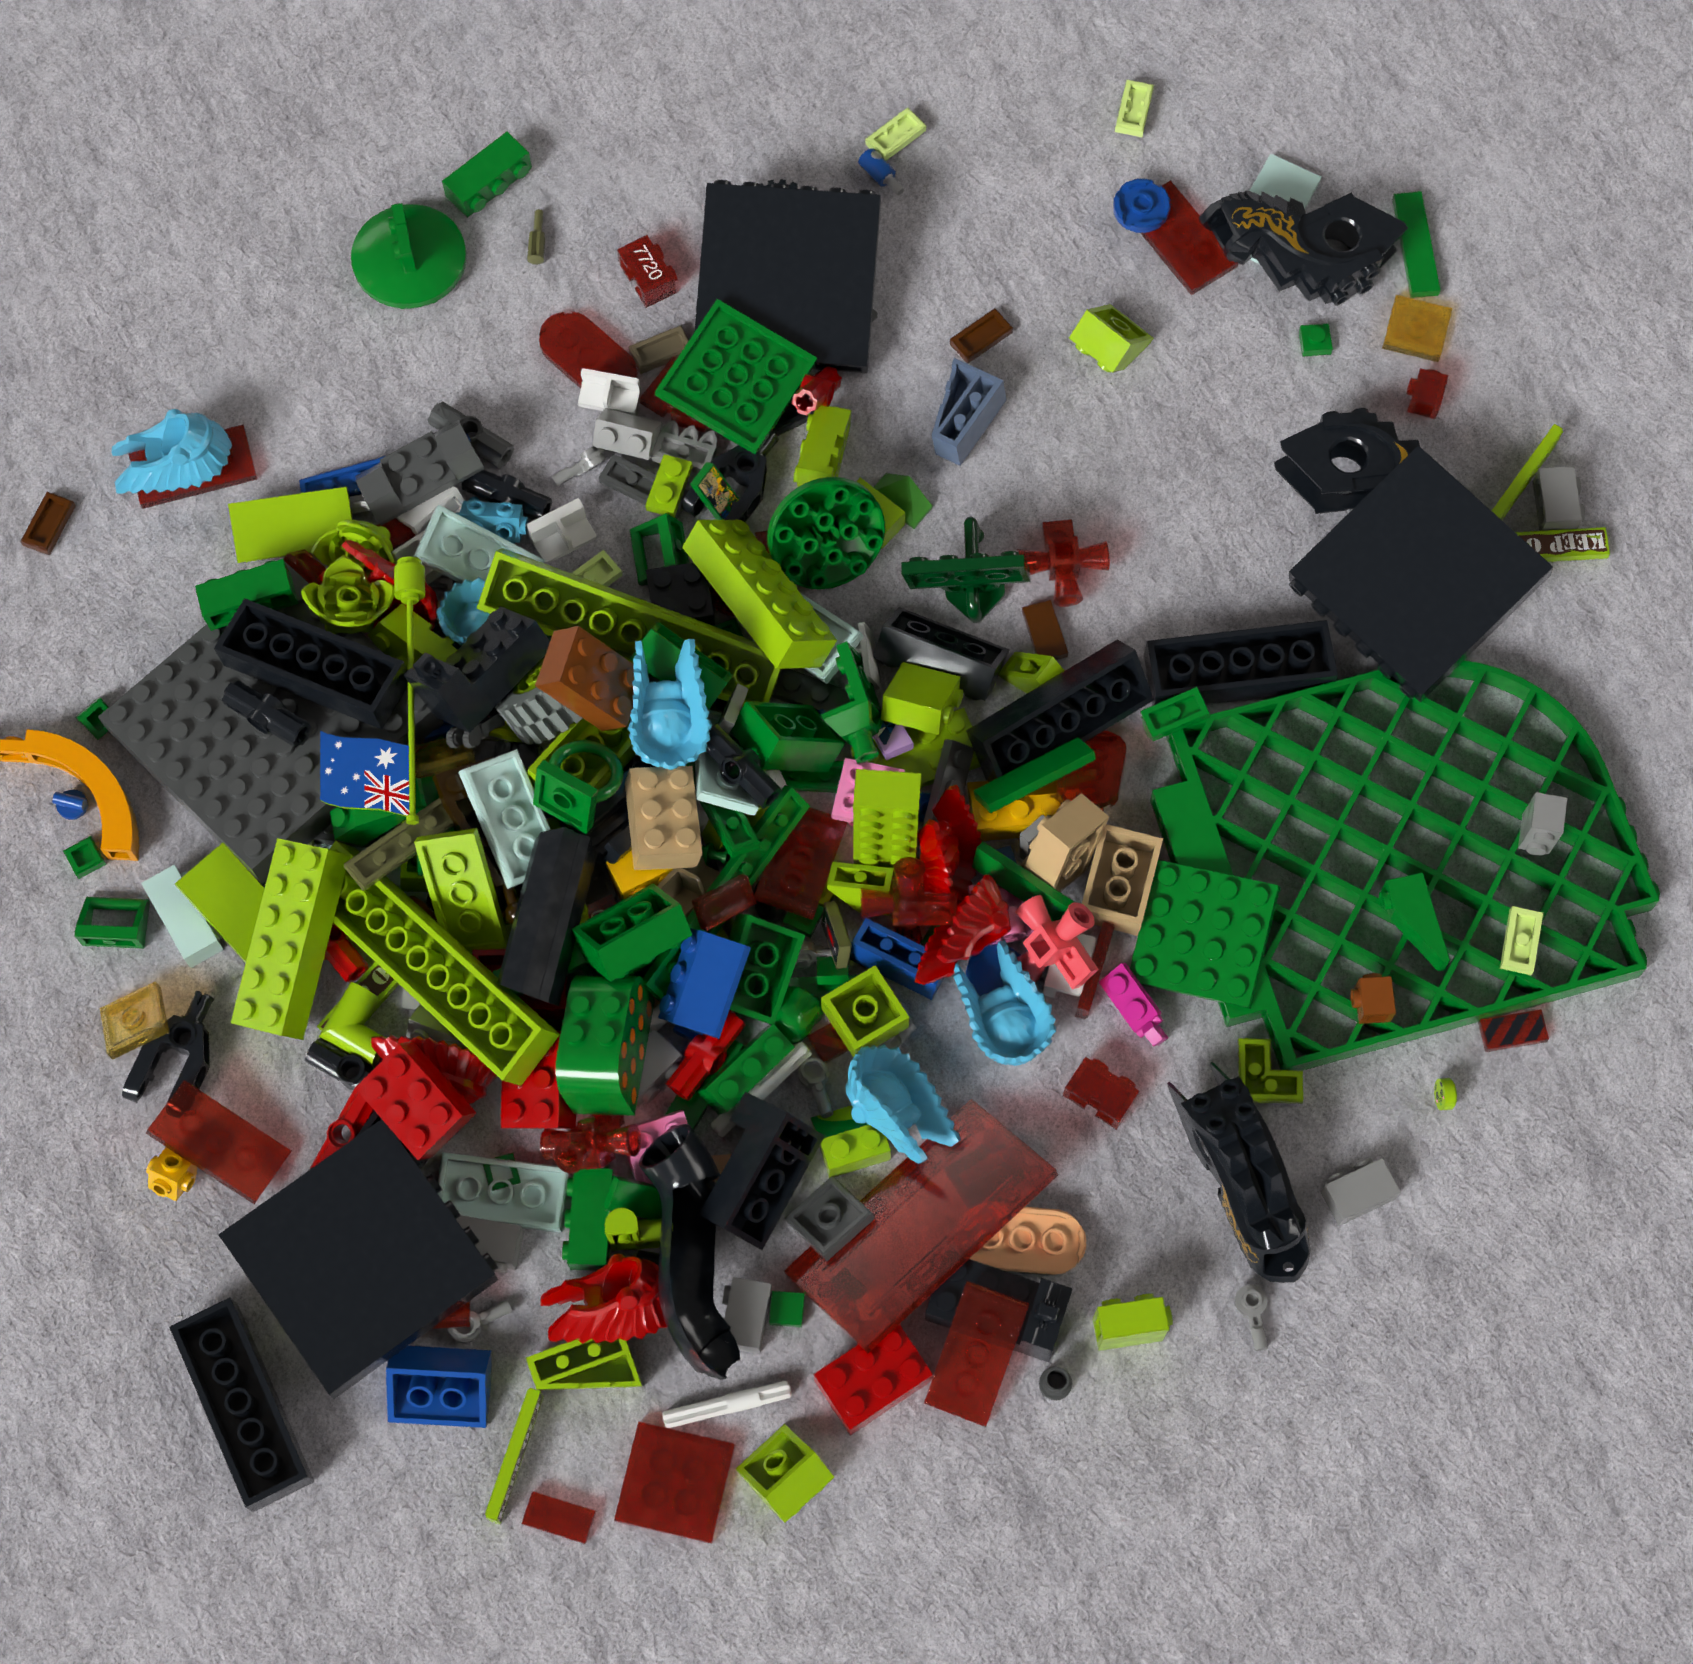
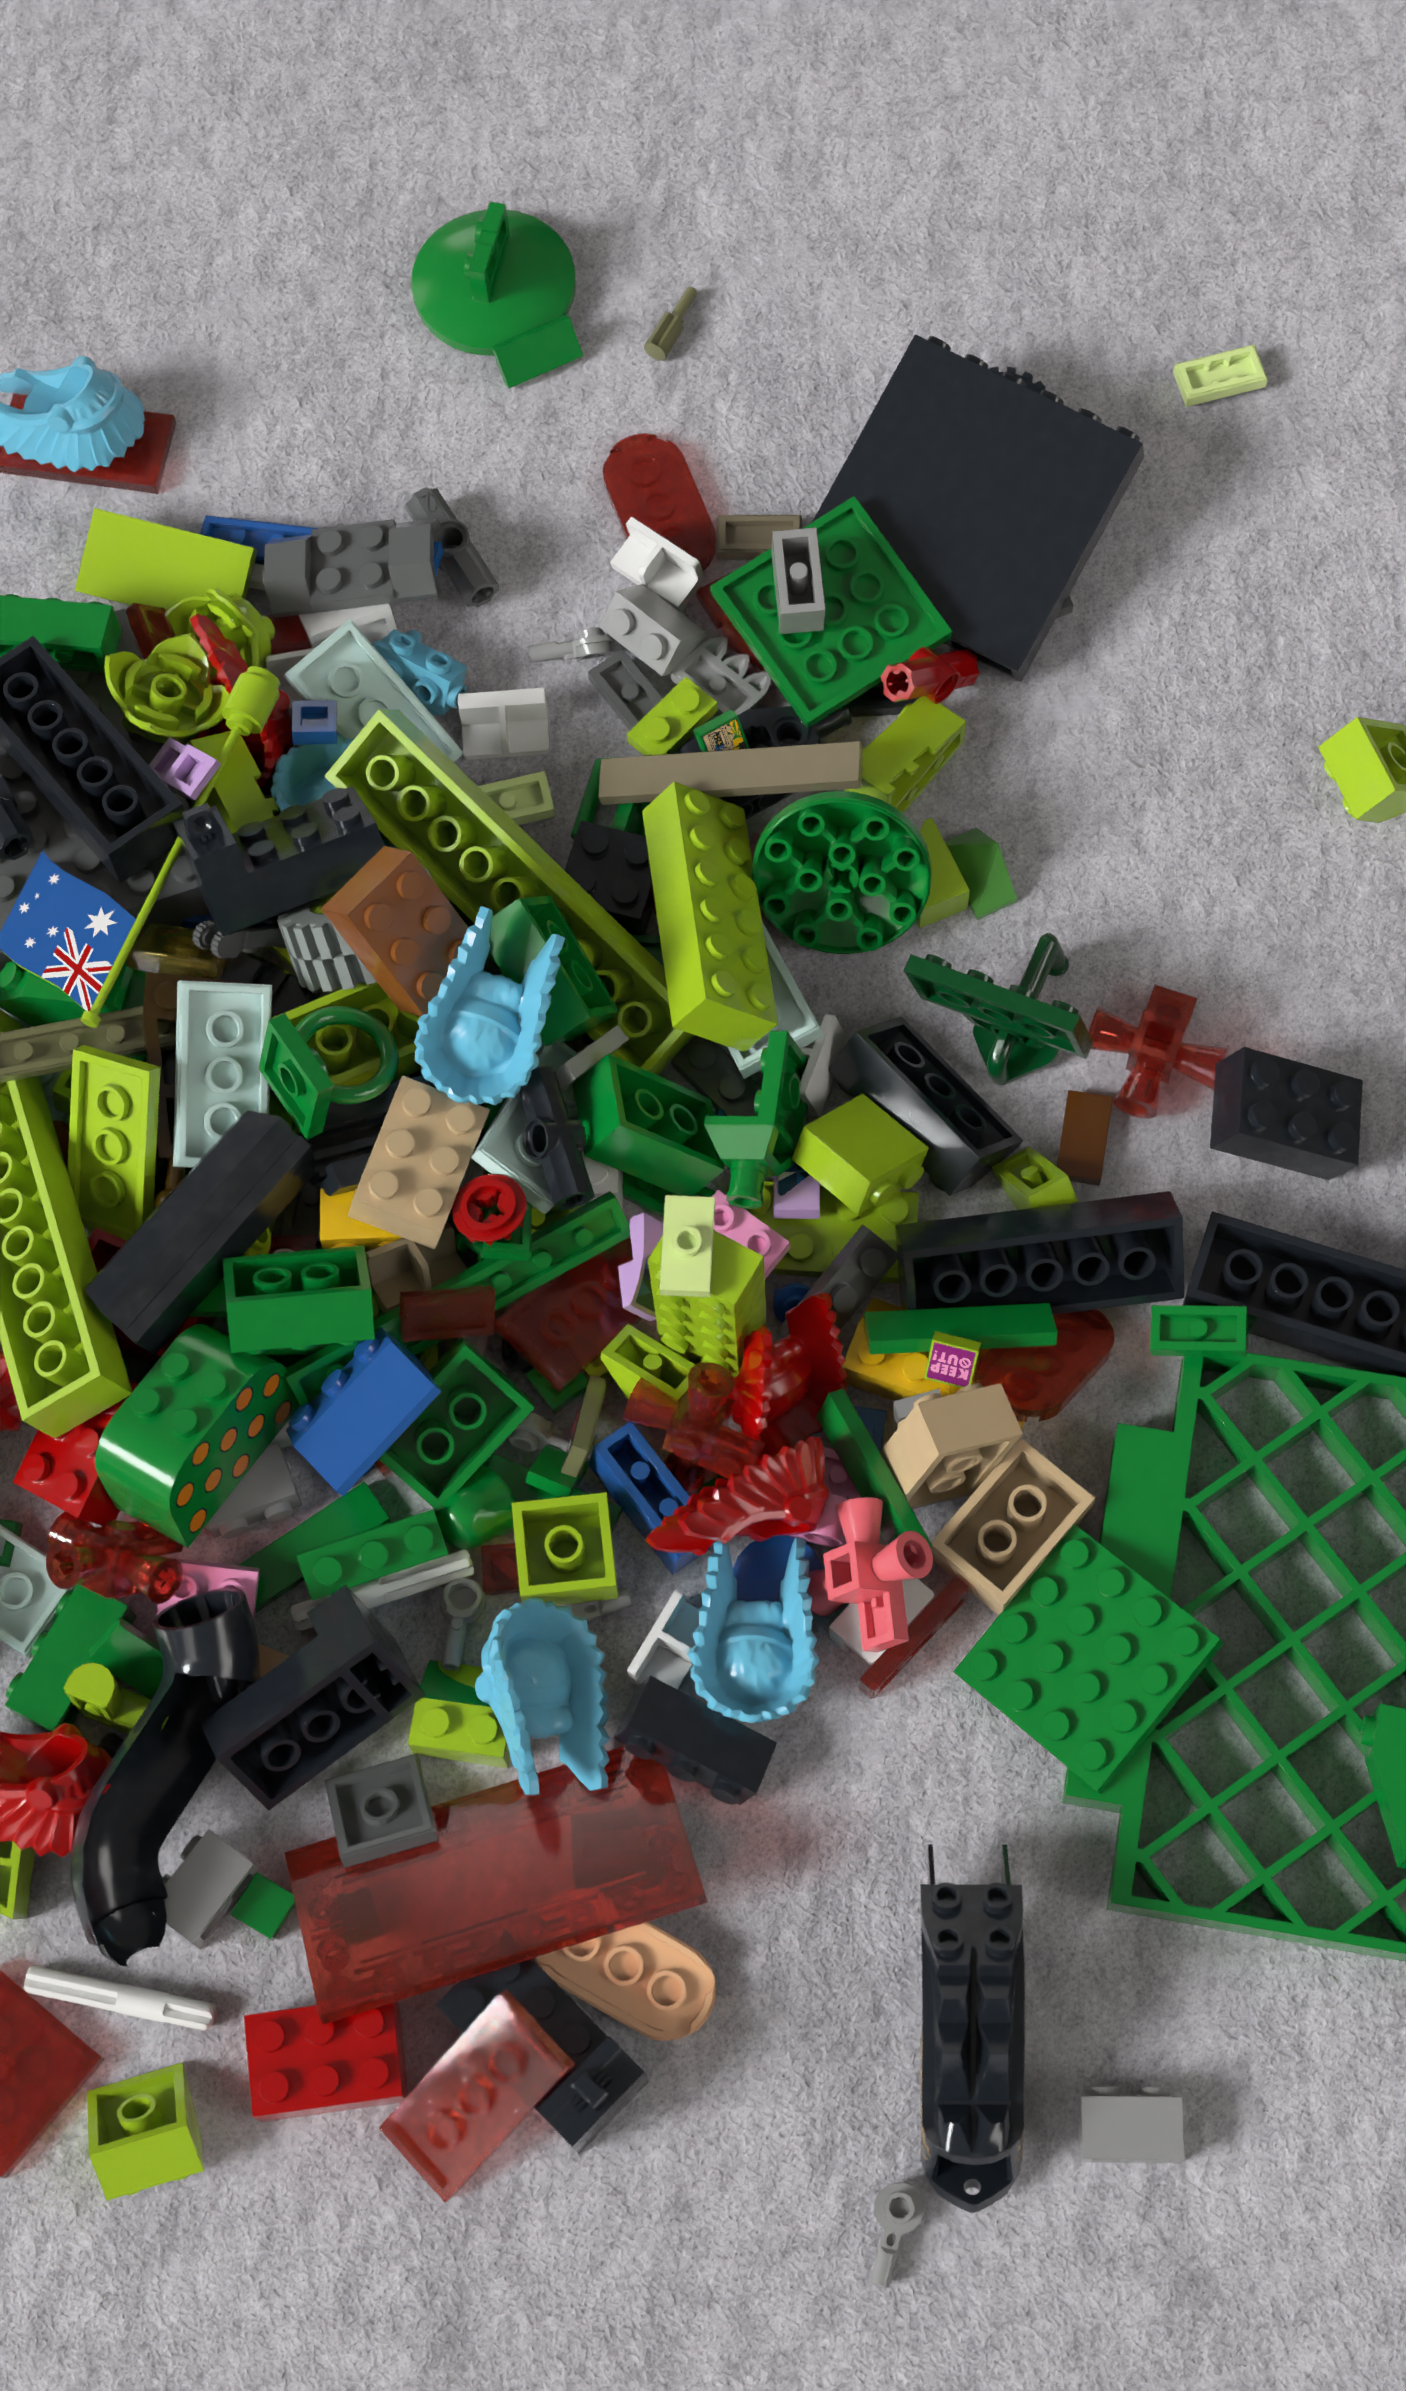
camera: 30 degrees right, 0 degrees up
(390, 639) = (184, 768): none -> lavender slope
(449, 578) = (314, 722): none -> blue plate
(460, 289) = (537, 351): none -> green tile
(487, 174) = (648, 215): green brick -> none
(507, 489) = (461, 641): black piece -> none
(645, 265) = (791, 424): clear red brick -> none
(704, 1057) = (325, 1512): red piece -> none
(712, 364) = (798, 580): none -> light grey brick
(714, 817) = (485, 1192): none -> red gear
(727, 500) = (734, 772): none -> dark tan tile
(830, 825) = (635, 1275): none -> lavender slope
(874, 786) = (687, 1246): none -> yellowish green plate
(880, 170) = (1174, 415): blue piece -> none
(954, 1044) = (667, 1645): none -> white panel
(966, 410) = (1124, 788): sand blue wedge -> none
(981, 335) = (1201, 695): reddish brown tile -> none
(999, 1088) = (695, 1741): none -> black brick
(1041, 794) = (952, 1360): none -> tile
(1051, 1393) = (588, 2196): dark grey piece -> none
(1102, 1090) = (846, 1822): clear red brick -> none
(1131, 1322) = (710, 2159): lime brick -> none
(1134, 1004) = (946, 1711): dark pink hinge -> none
(1160, 564) = (1286, 1113): none -> black brick
(1262, 1082) = (1063, 1899): lime brick -> none
(1374, 999) = (1280, 1863): dark orange brick -> none
(1445, 1094) = (1324, 2047): lime tile -> none

